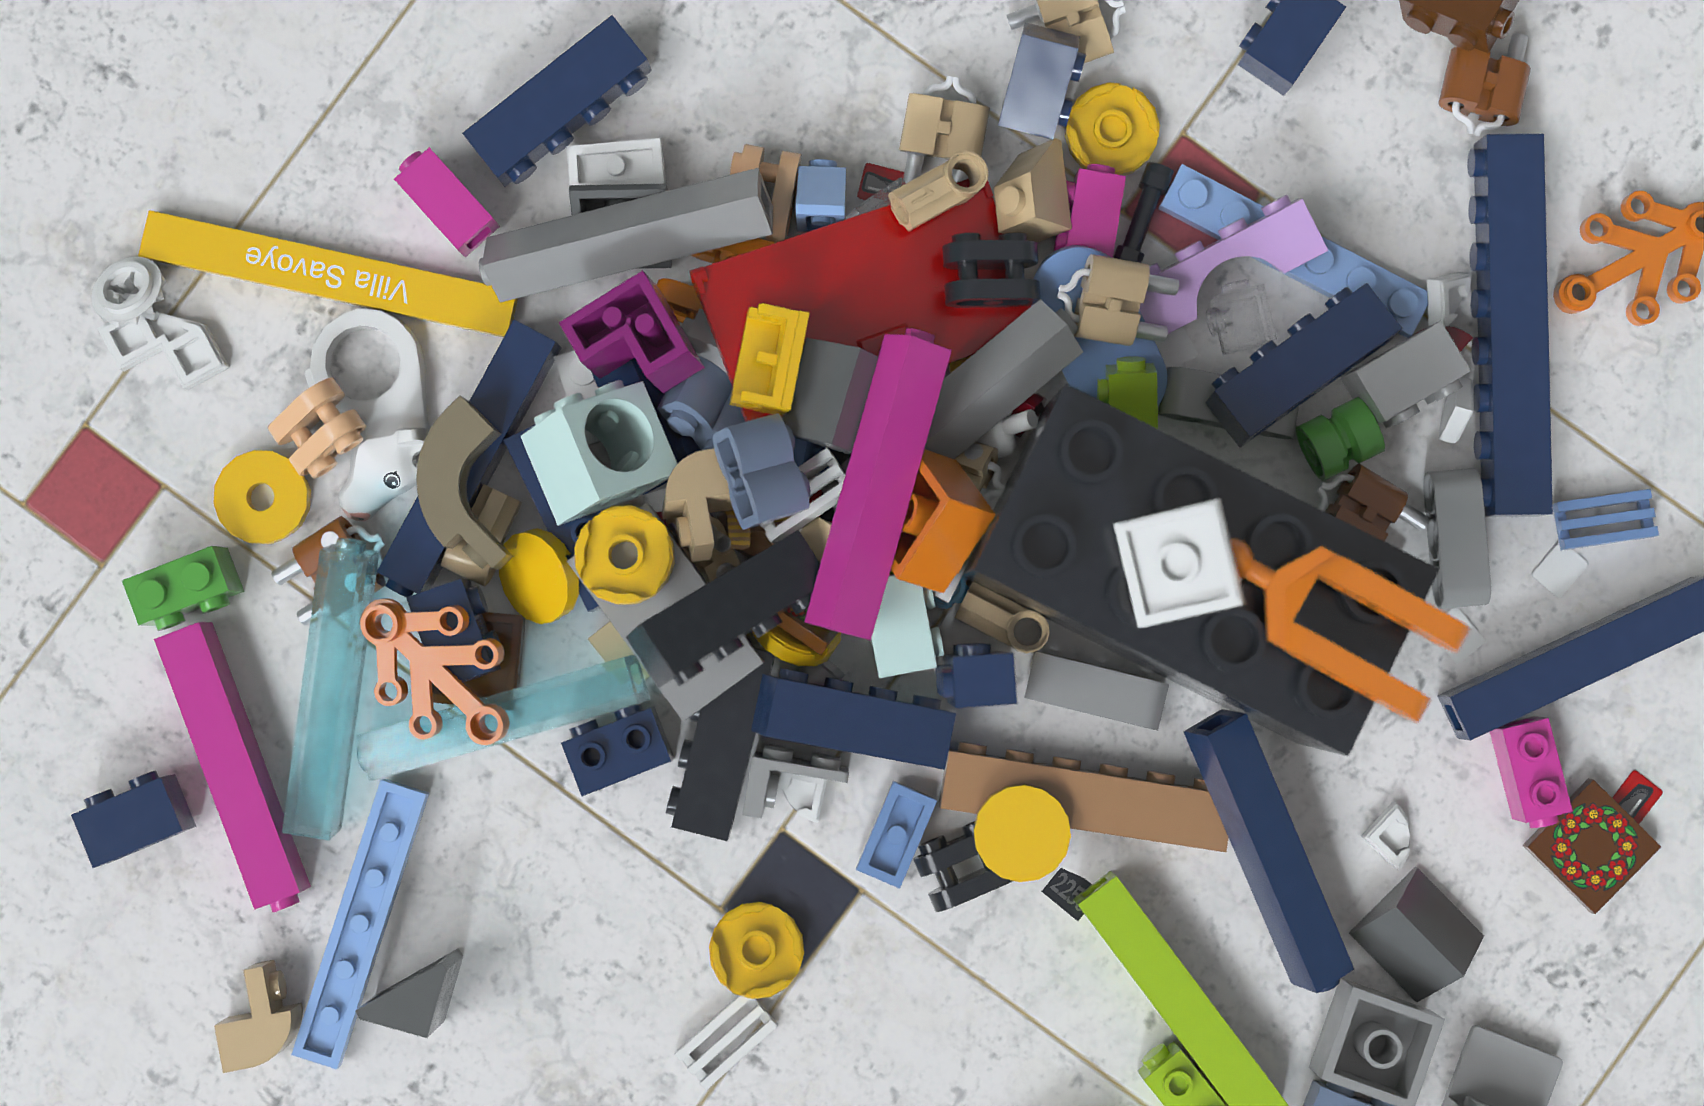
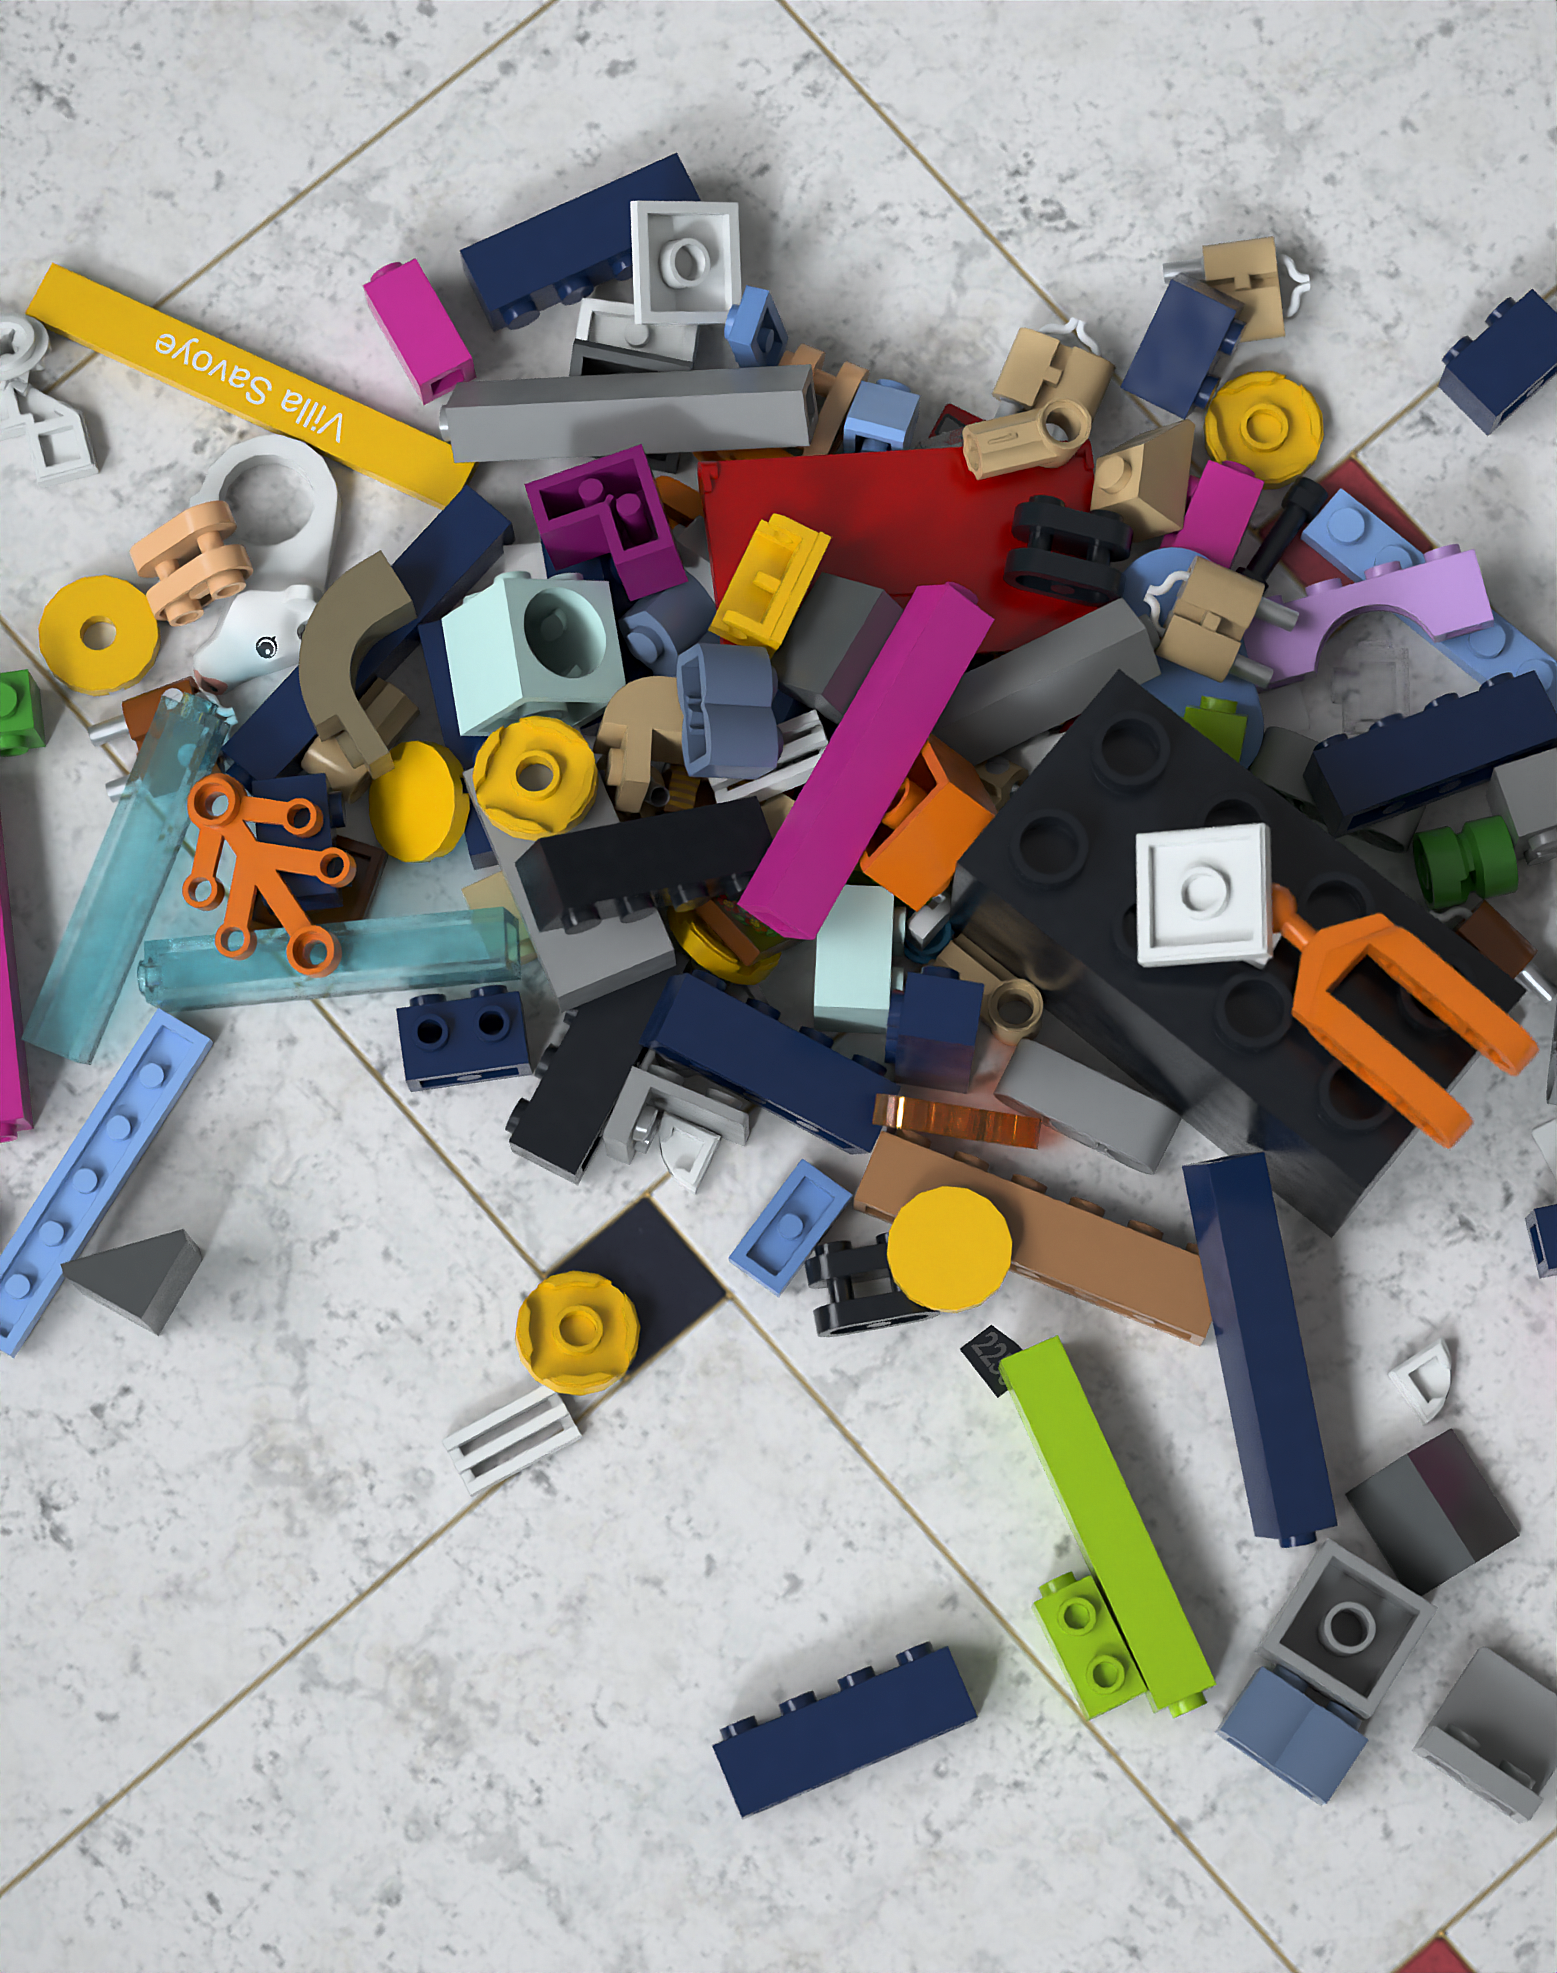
camera: 20 degrees right, 10 degrees down
(640, 104) = (685, 261): none -> white slope
(708, 147) = (755, 330): none -> medium blue plate
(1003, 730) = (956, 1121): none -> clear orange beam

